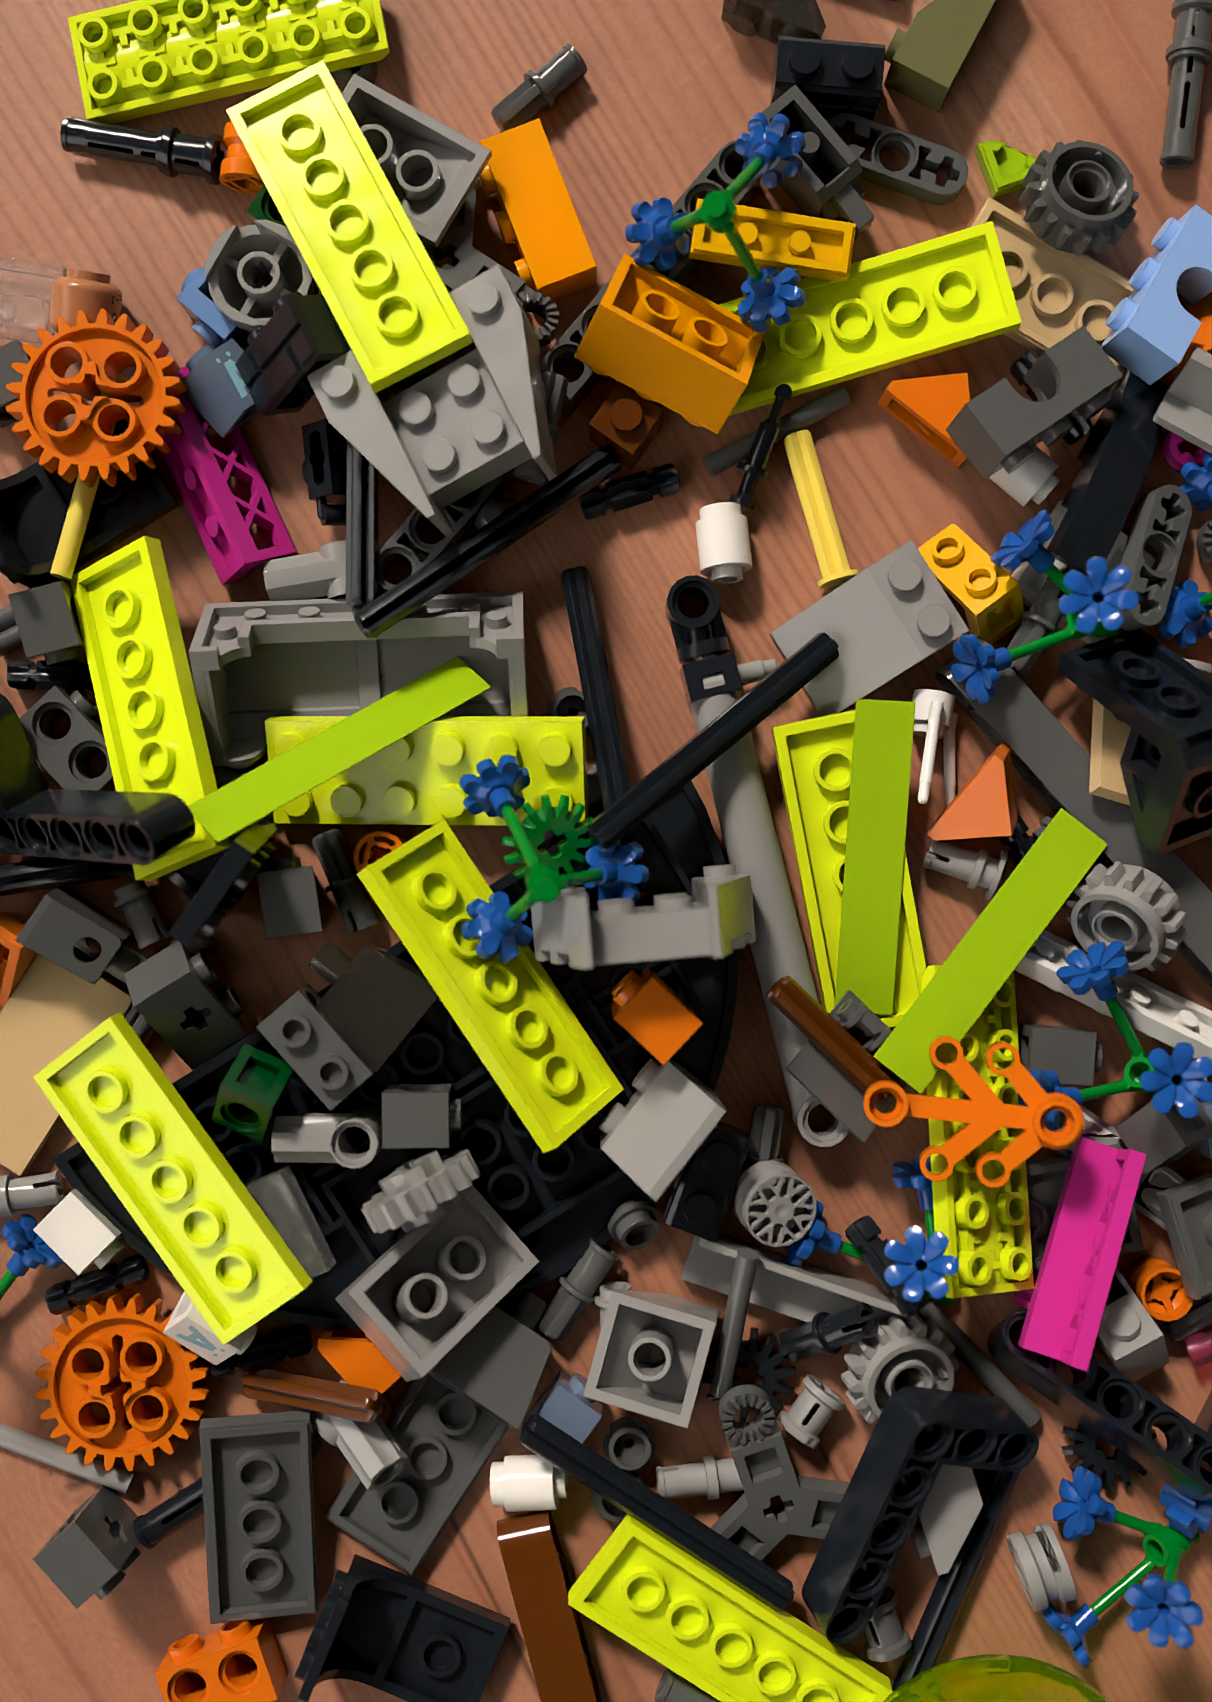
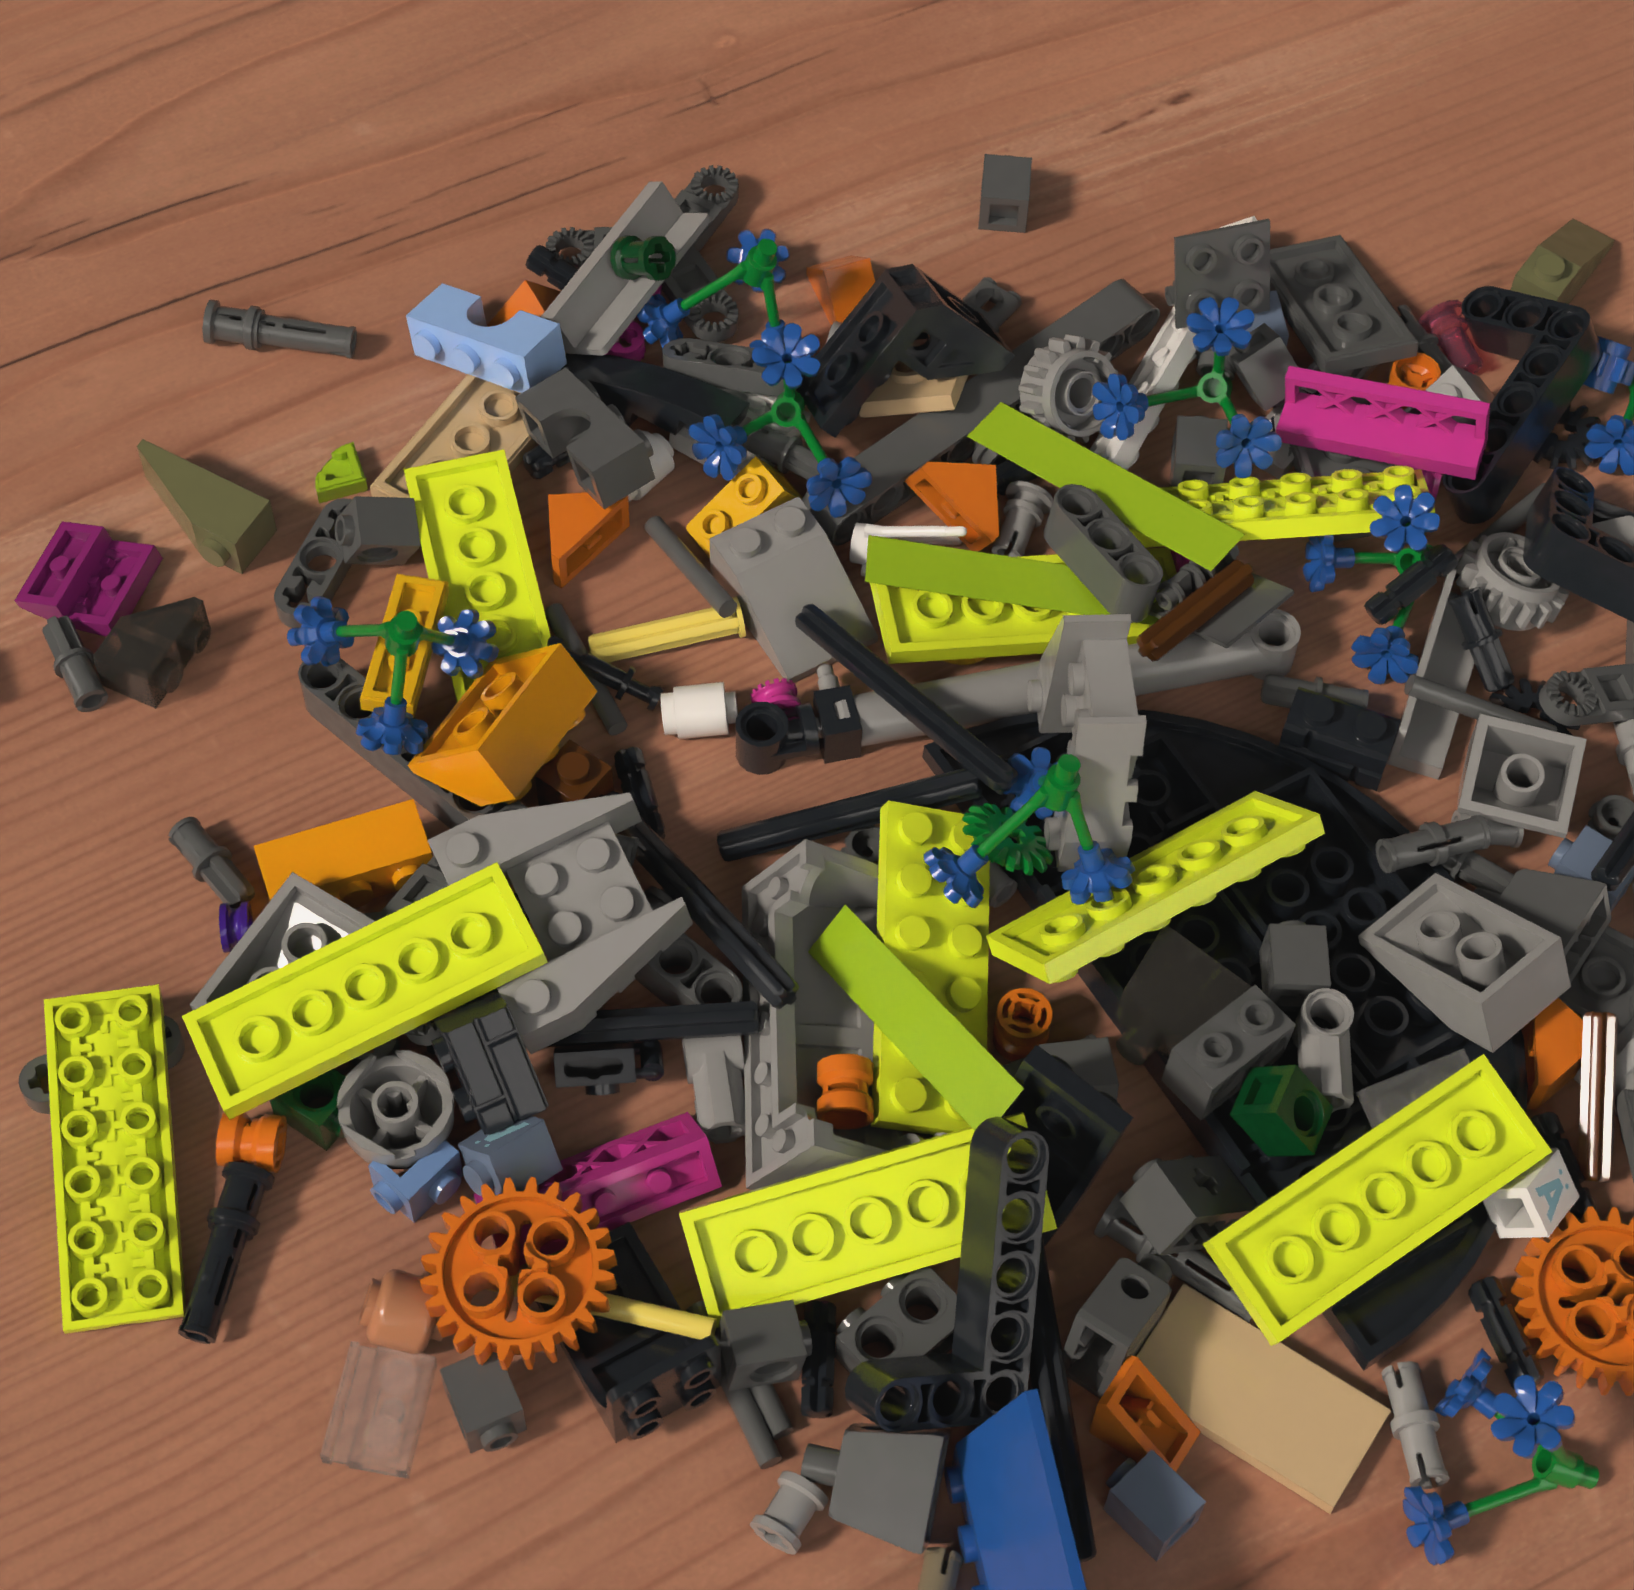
camera: 90 degrees left, 30 degrees down
(79, 1233) = (1445, 1337): white brick -> none
(141, 913) = (1080, 1277): light grey pin -> none
(295, 690) = (845, 1091): none -> orange wheel
(420, 1191) = (1372, 950): light grey gear -> none
(469, 117) = (233, 924): none -> dark purple bush
(573, 1262) = (1462, 835): none -> dark grey pin
(634, 1224) = (1390, 806): dark grey plate -> none
(653, 1013) = (1181, 741): orange brick -> none
(660, 1125) = (1290, 740): light grey slope -> none
(735, 619) = (779, 693): none -> dark pink bush
(772, 1201) = (1357, 672): light grey wheel -> none
(808, 1429) = (1556, 656): light grey bush -> none
(830, 74) = (240, 607): black brick -> none
(830, 171) = (360, 596): dark grey hinge -> none
(894, 527) = (690, 566): none -> dark grey bar
(918, 202) = (378, 530): none -> dark grey brick
(928, 945) = (1102, 552): none -> dark grey beam
(983, 1113) = (1260, 479): orange plant -> none
(1079, 197) = (384, 409): dark grey gear -> none

